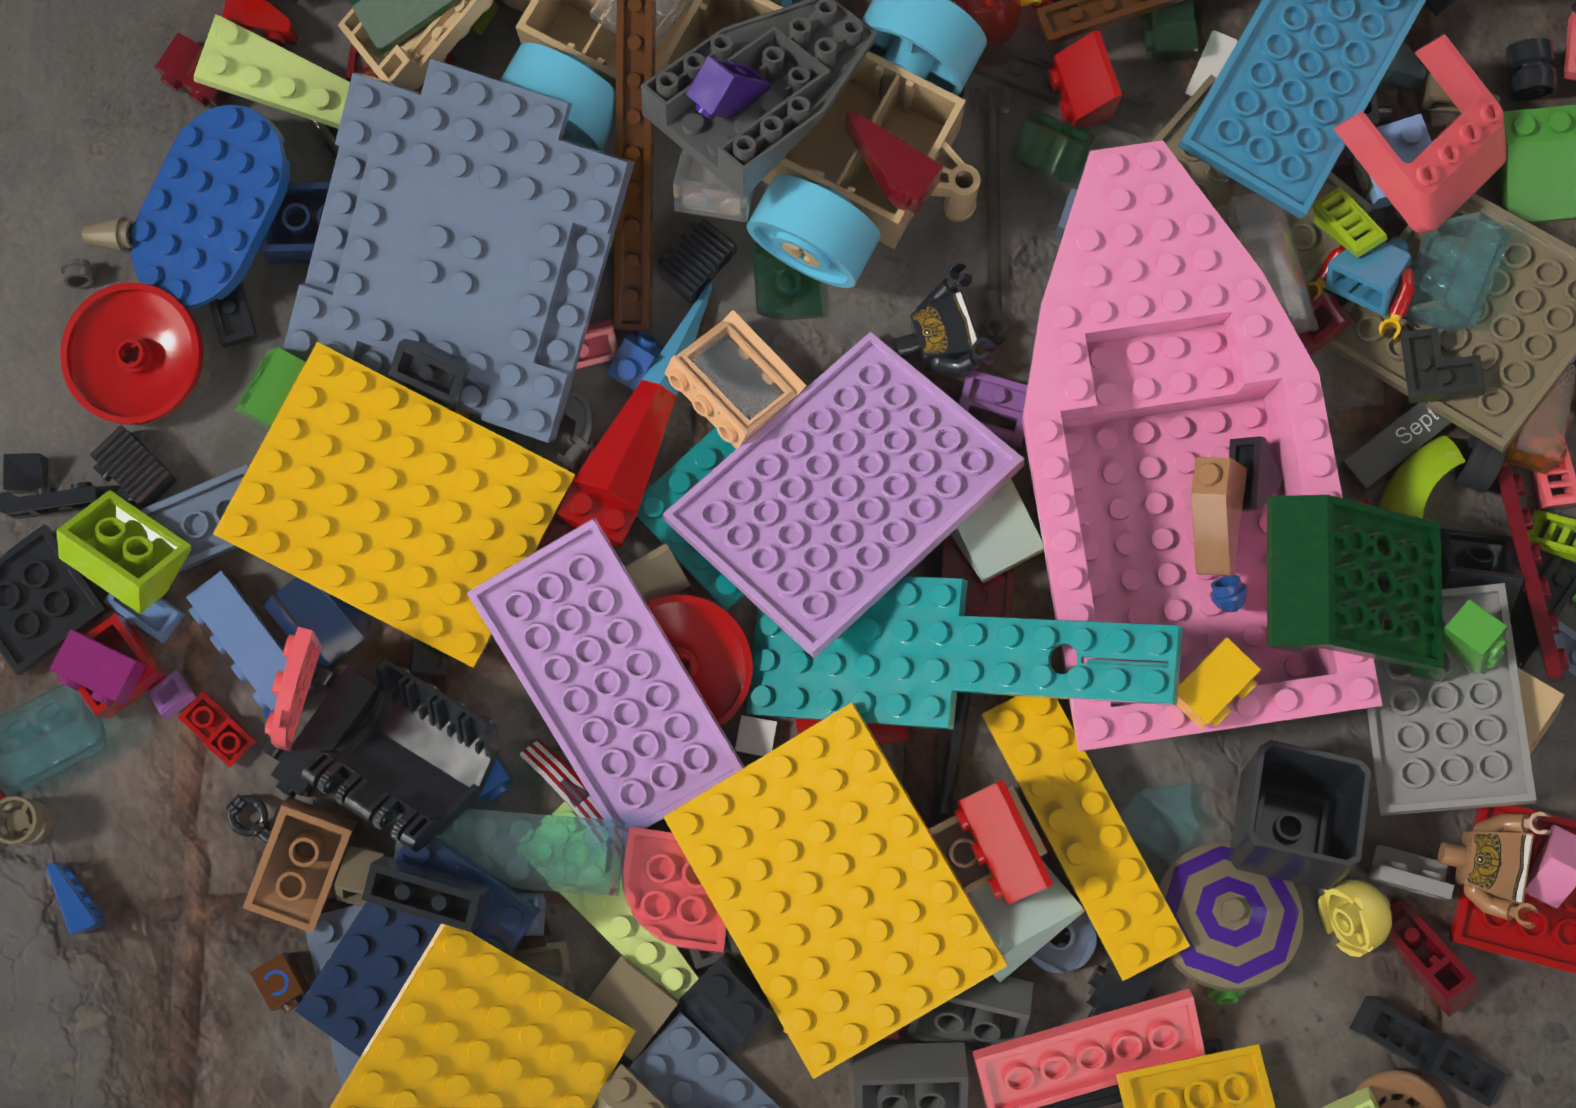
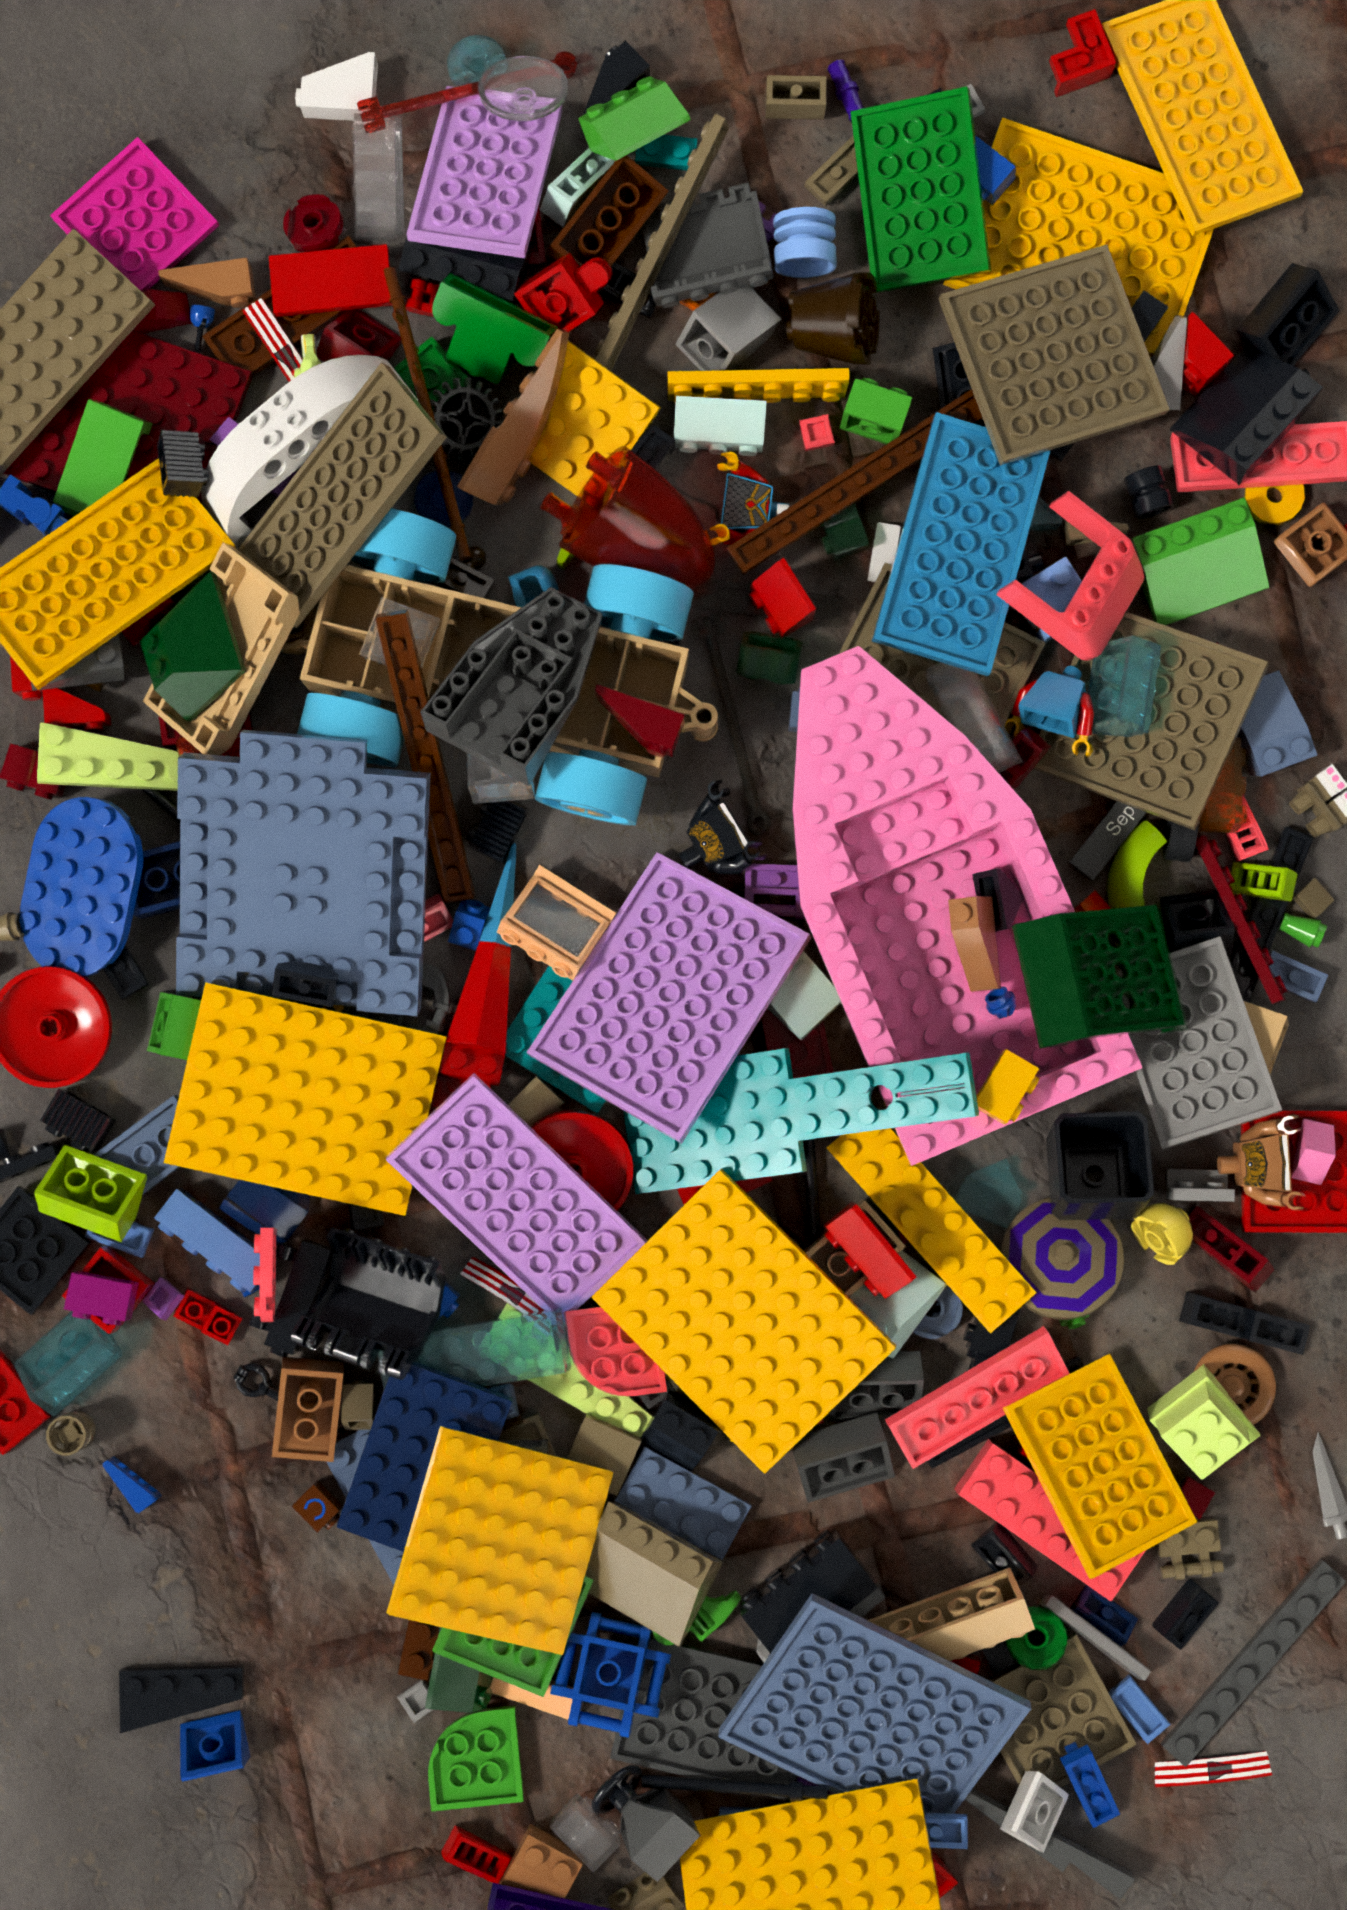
camera: 20 degrees left, 5 degrees up
(426, 893) = (420, 1411): black brick -> none
(726, 88) = (491, 696): dark purple slope -> none
(755, 736) = (648, 1210): white tile -> none
(782, 290) = (576, 835): clear green slope -> none
(1339, 204) = (1014, 653): lime slope -> none
(1437, 379) = (1125, 781): pearl dark grey plate -> none
(1475, 637) = (1205, 991): bright green brick -> none

